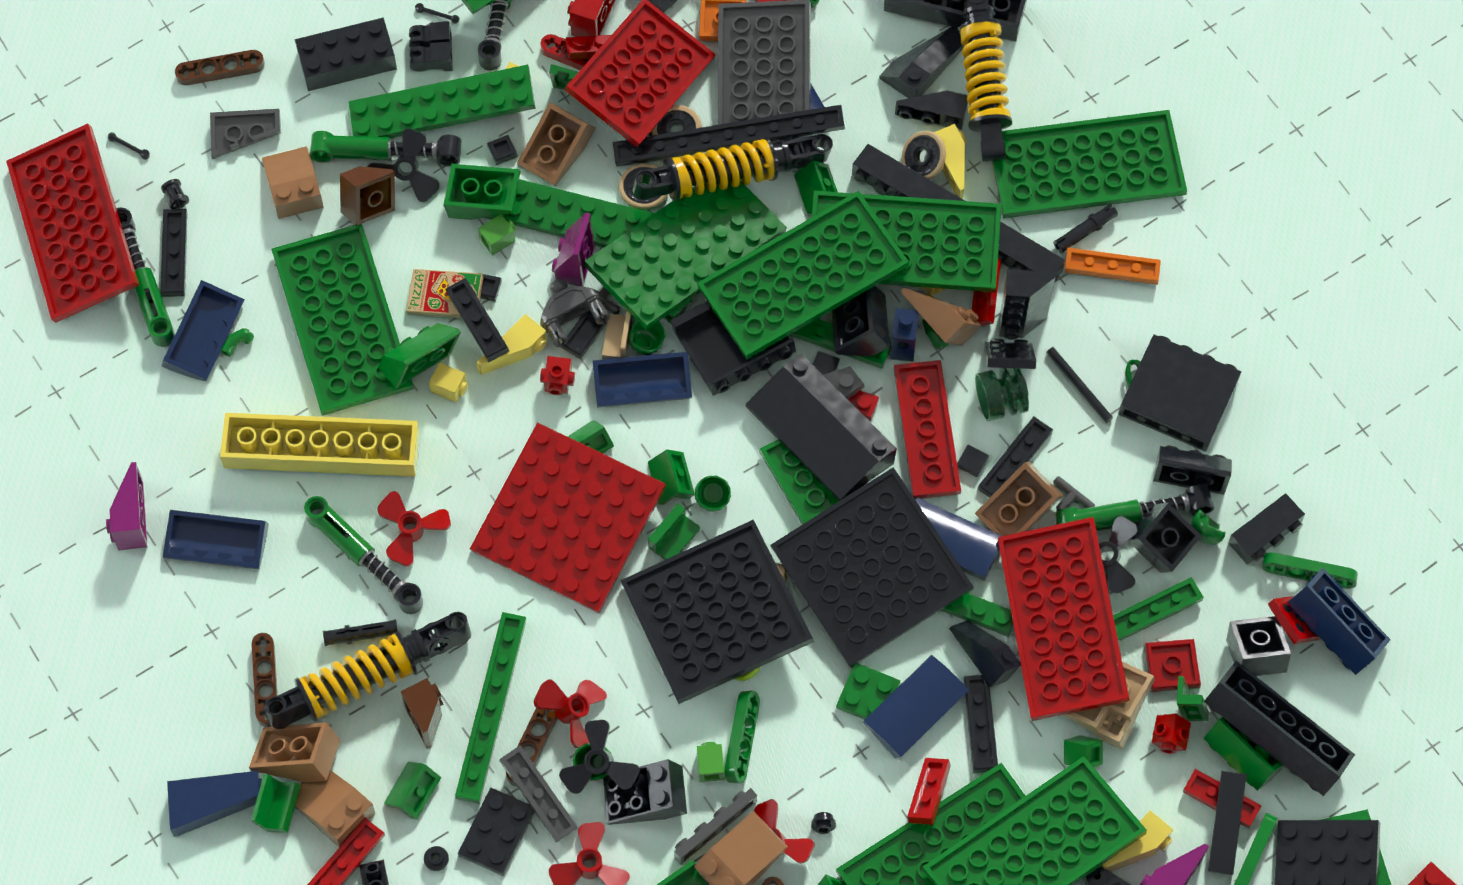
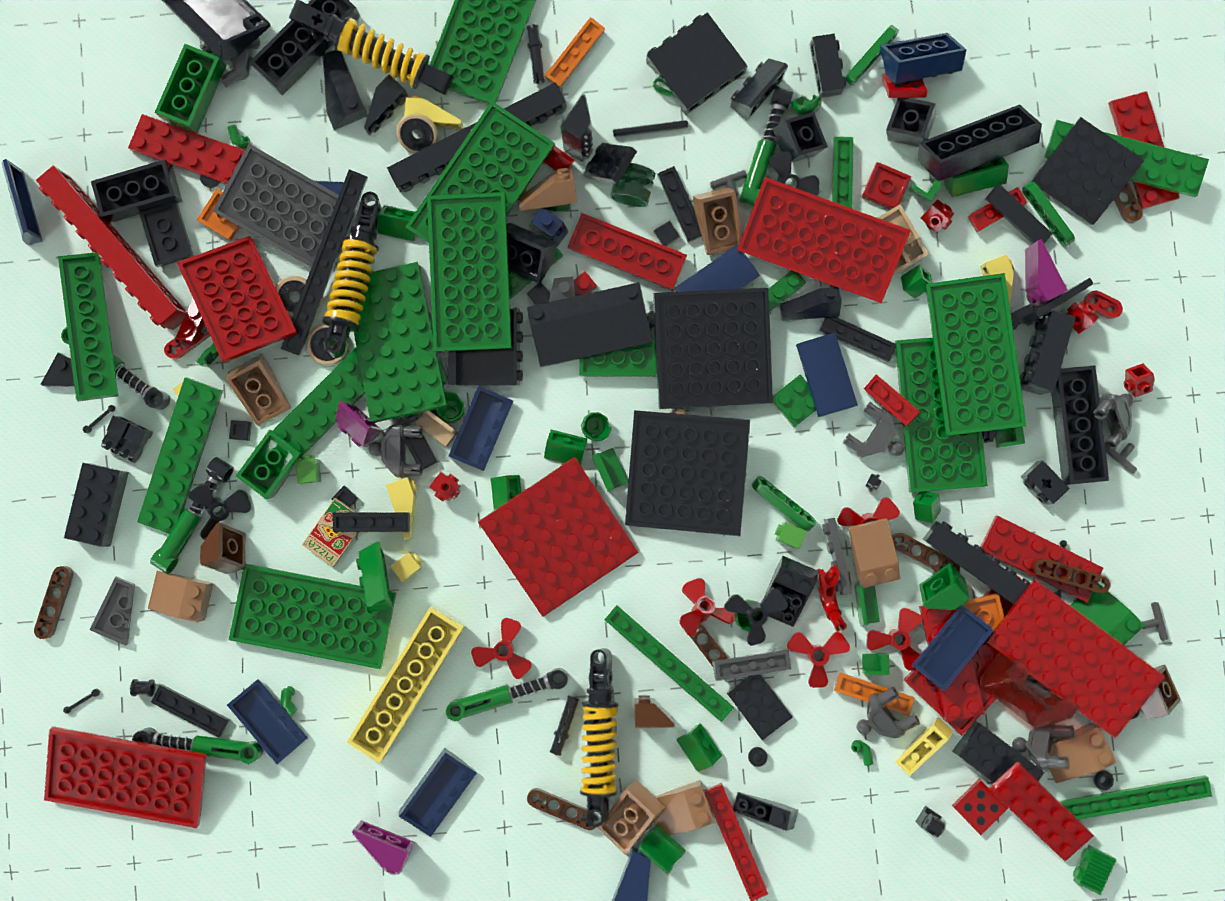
camera: 60 degrees left, 20 degrees up
(665, 838) = (827, 592): none -> red piece
(878, 803) = (880, 437): none -> dark grey connector

